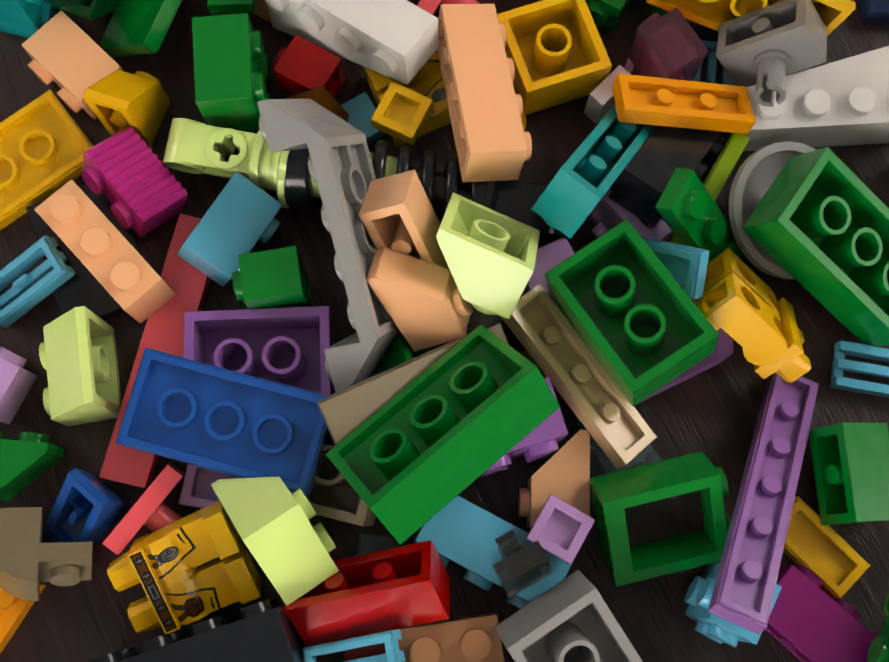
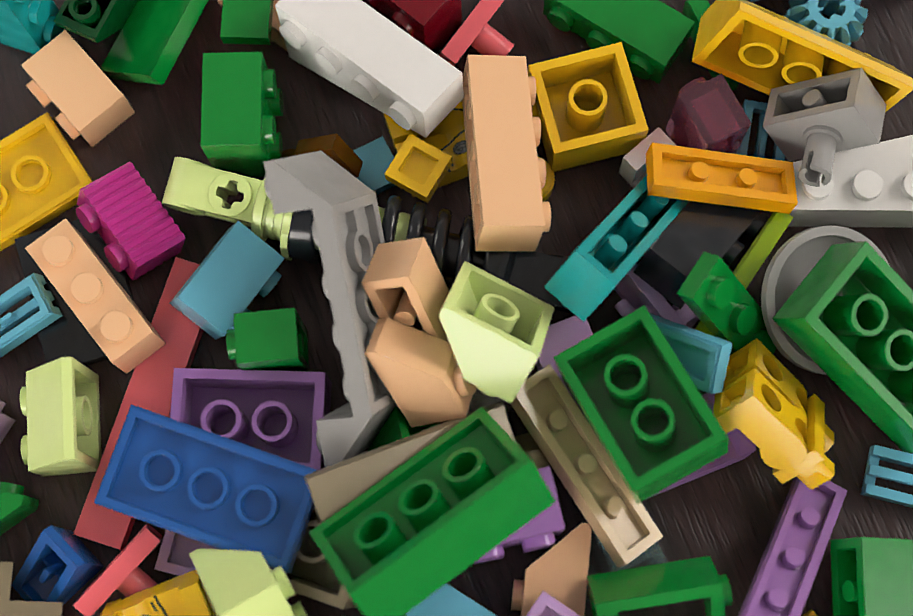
camera: 10 degrees right, 0 degrees up
(129, 101) = (131, 134): yellow slope -> none
(307, 67) = (322, 109): red brick -> none

